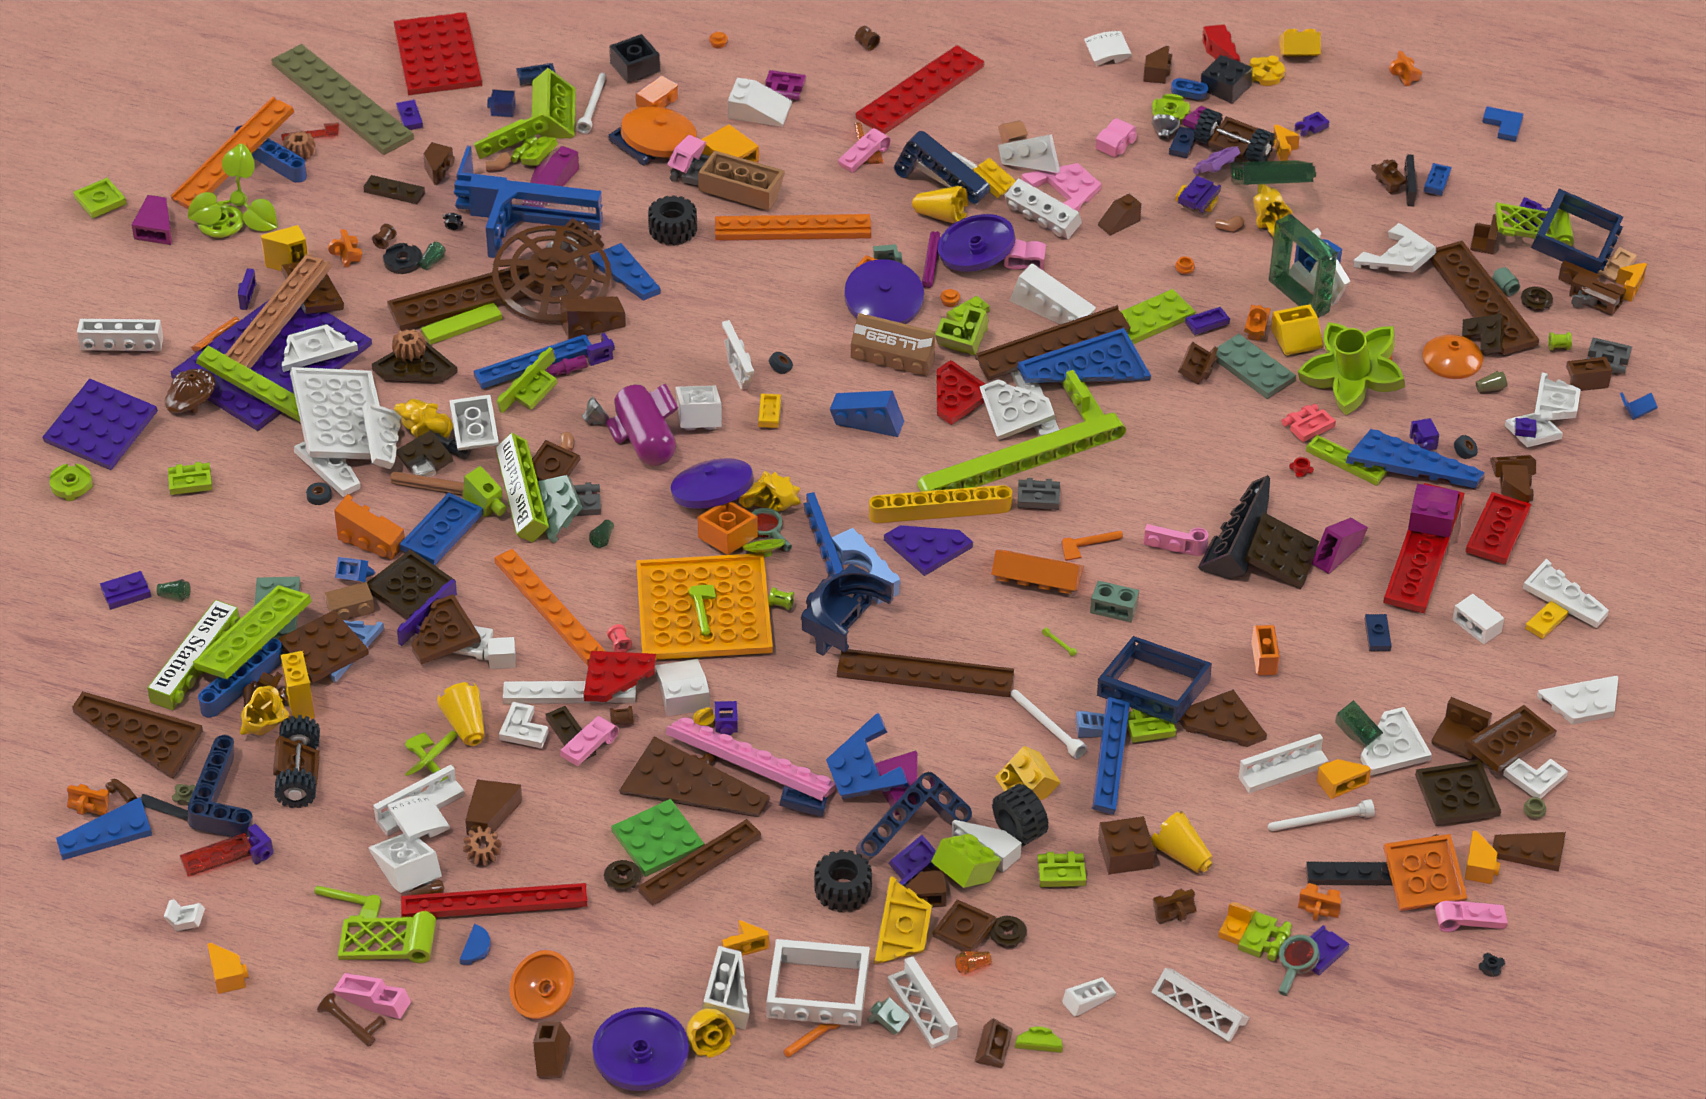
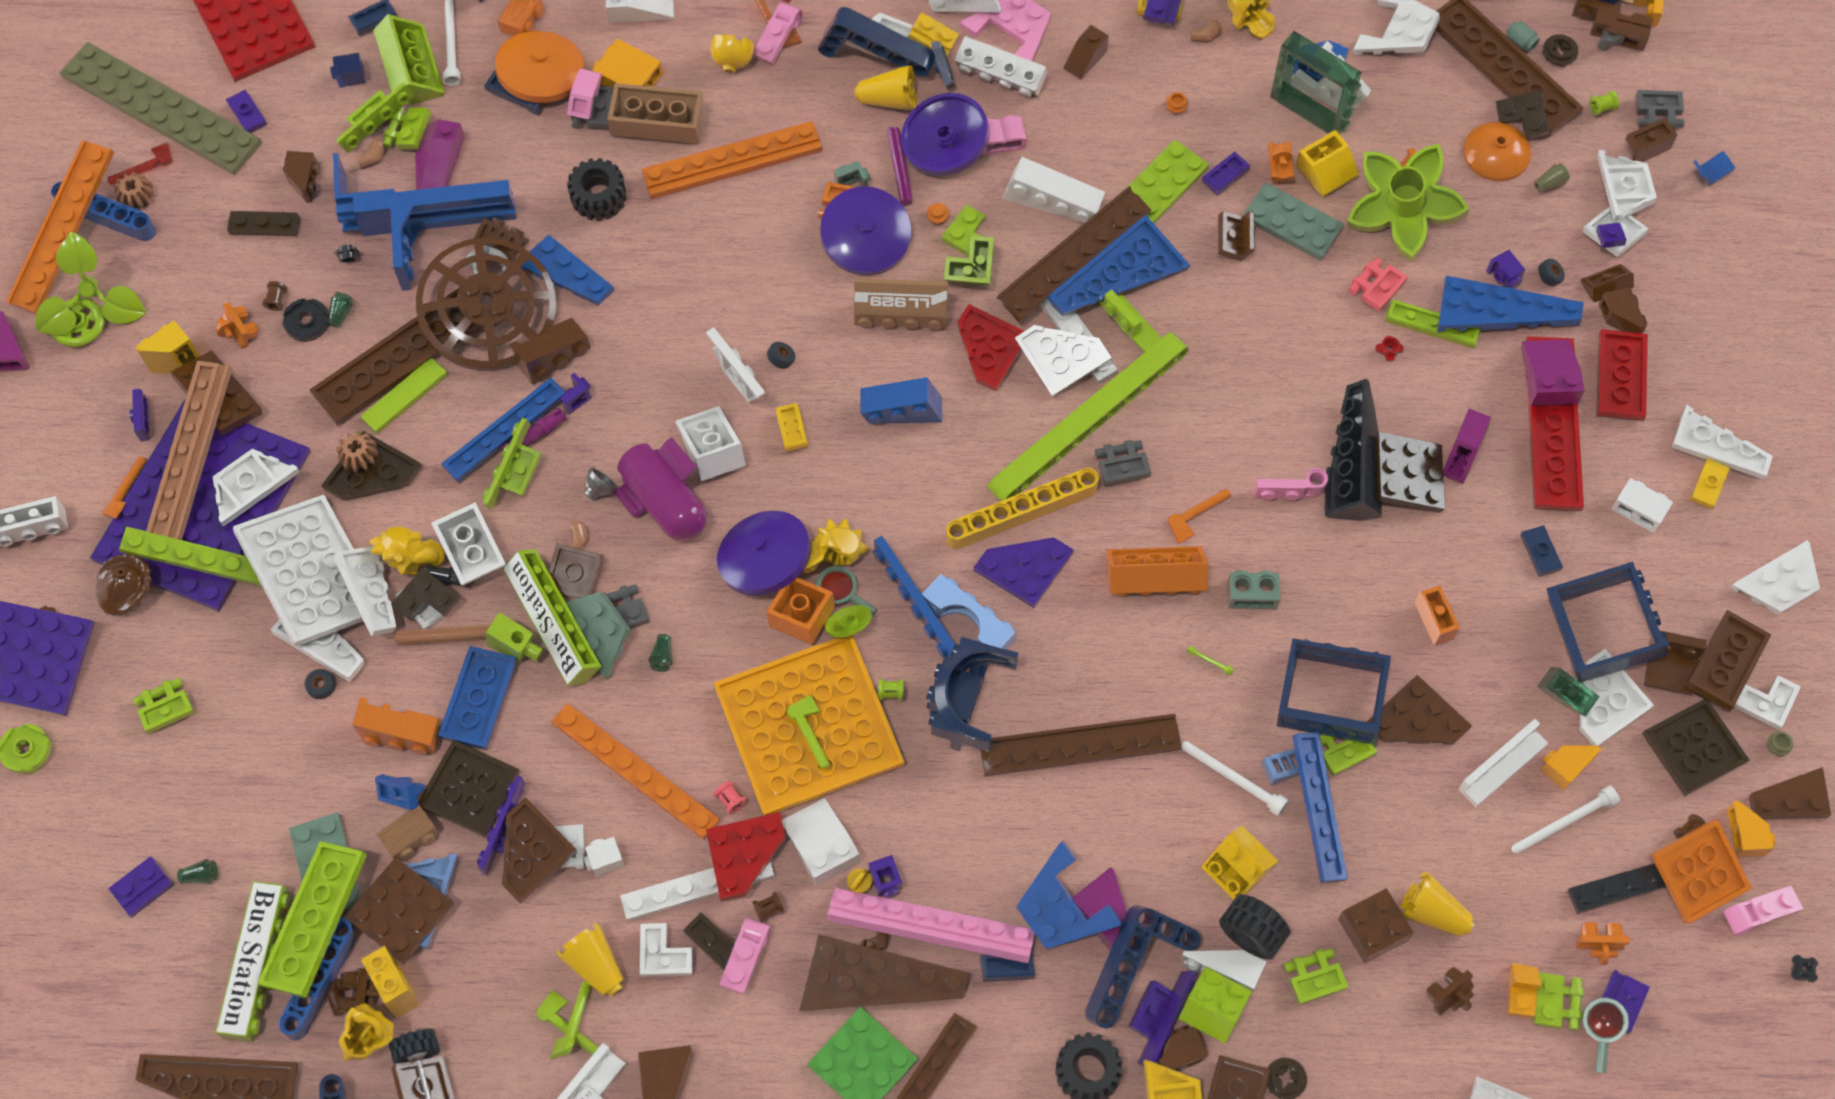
camera: 15 degrees left, 20 degrees up
(820, 153) = (731, 52): none -> yellow cylinder
(993, 195) = (942, 65): none -> dark blue plate
(1403, 658) = (1596, 582): none -> dark blue window

